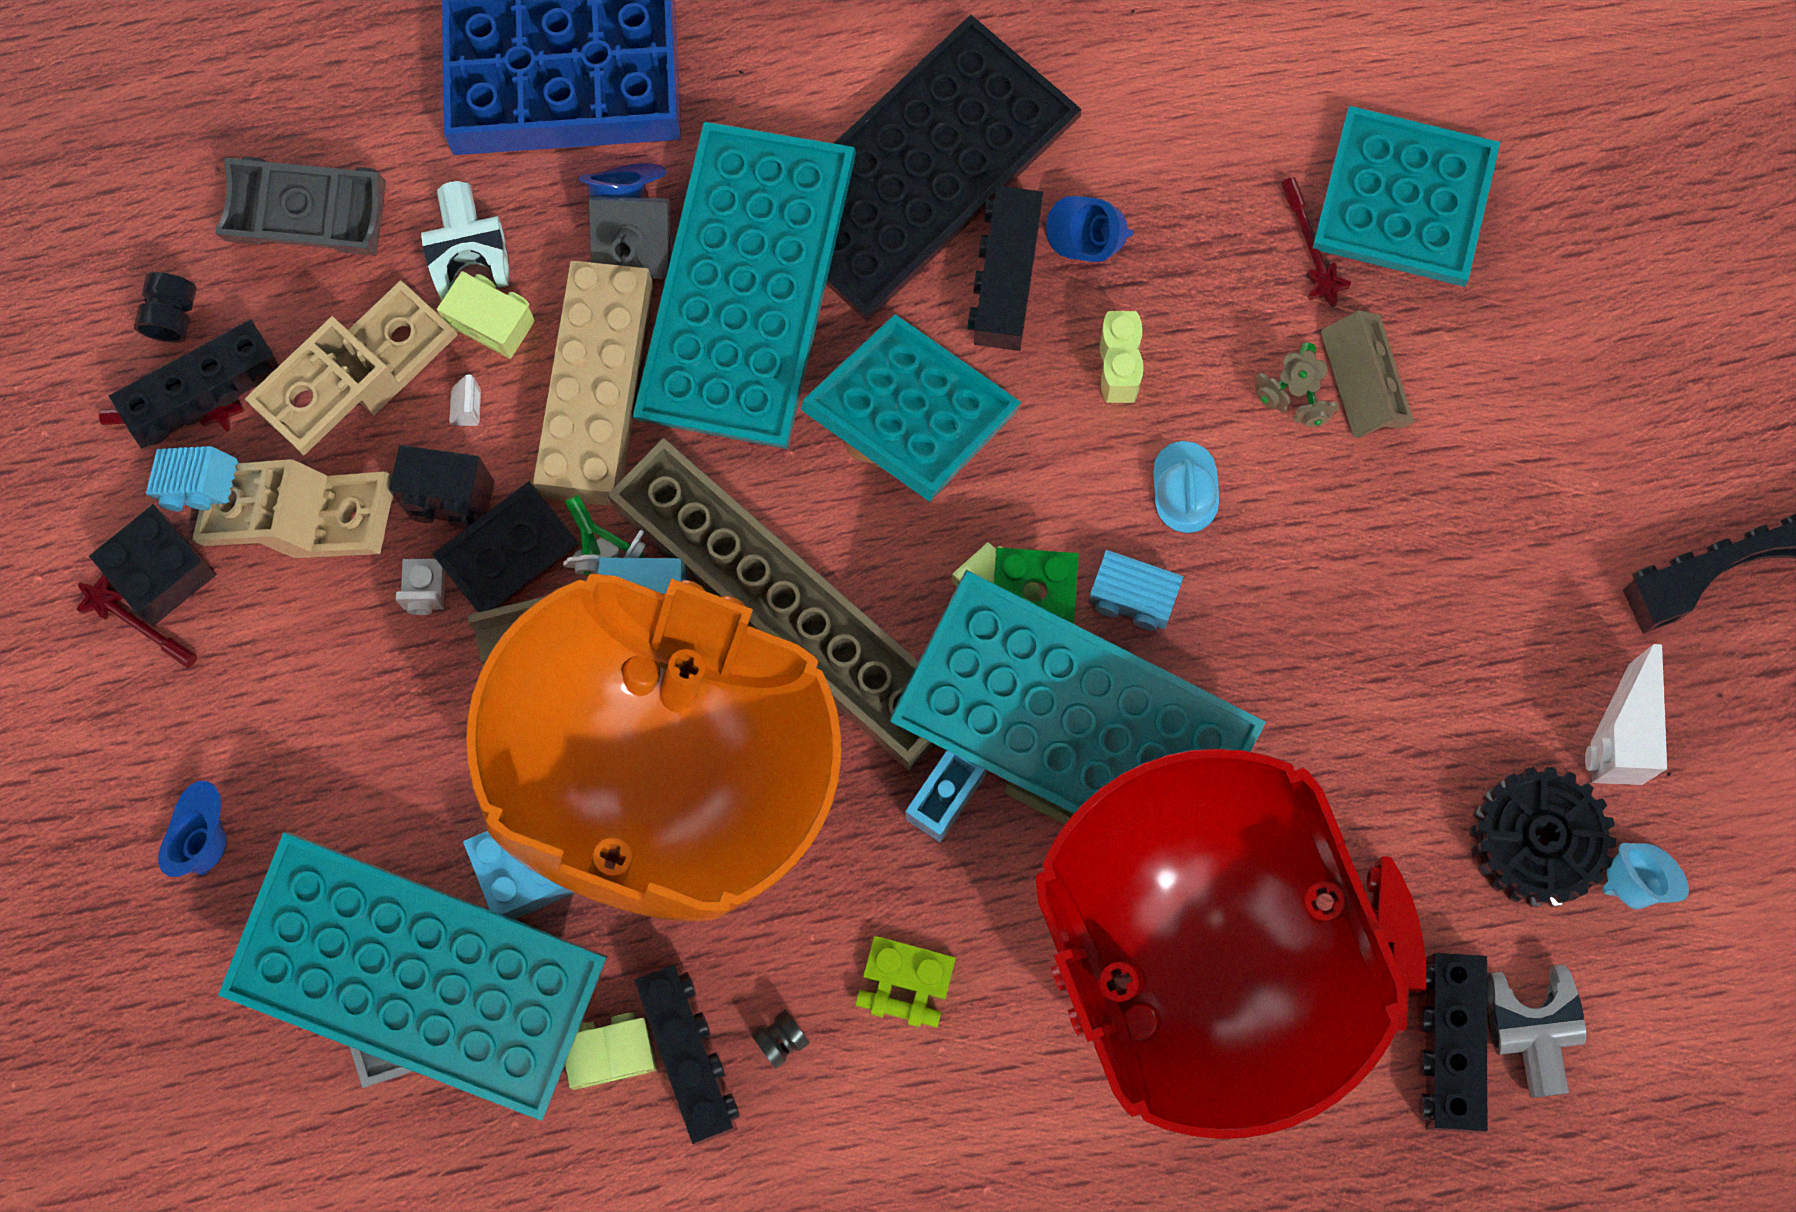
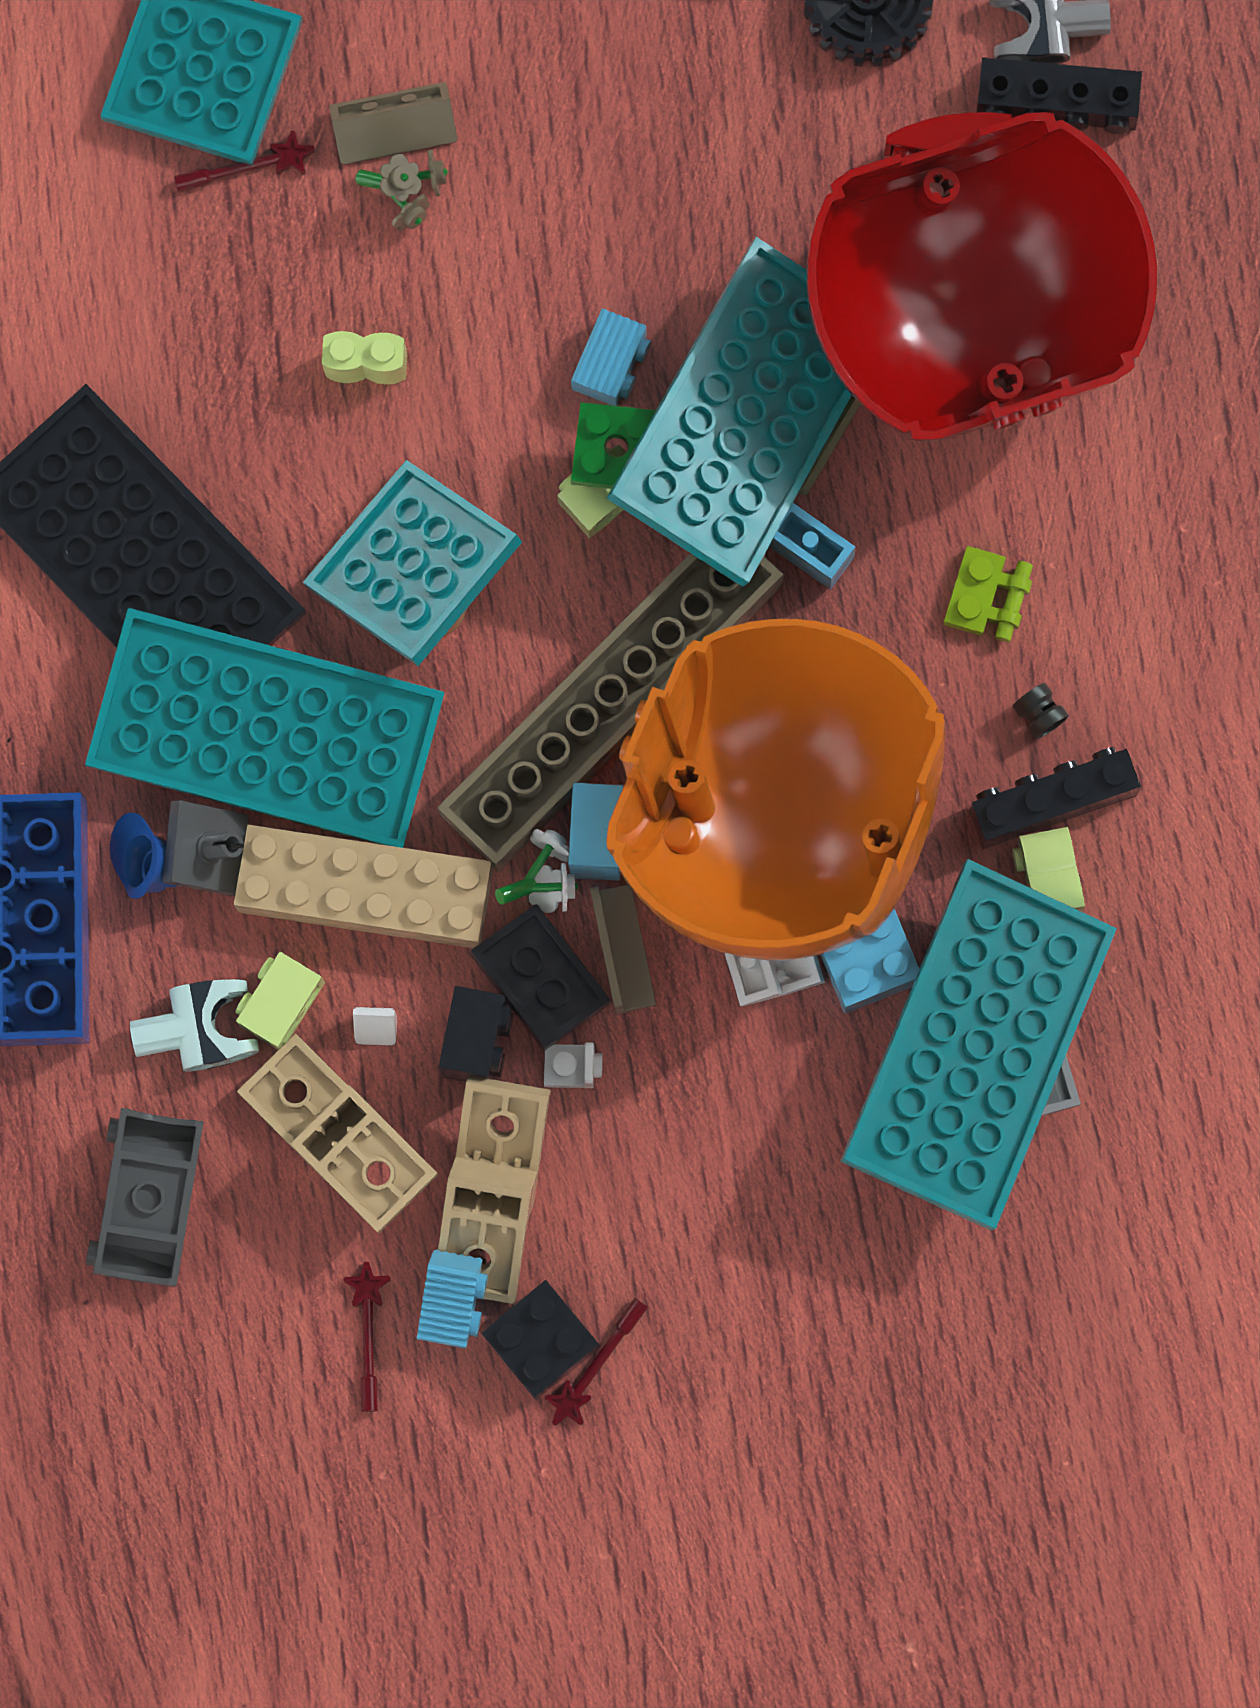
camera: 85 degrees left, 5 degrees up
(165, 307) = (254, 1341): black wheel -> none
(195, 384) = (344, 1302): black brick -> none
(195, 833) = (822, 1282): blue piece -> none
(1007, 268) = (261, 465): black brick -> none
(1086, 228) = (223, 384): blue piece -> none
(1186, 486) = (499, 306): medium azure piece -> none

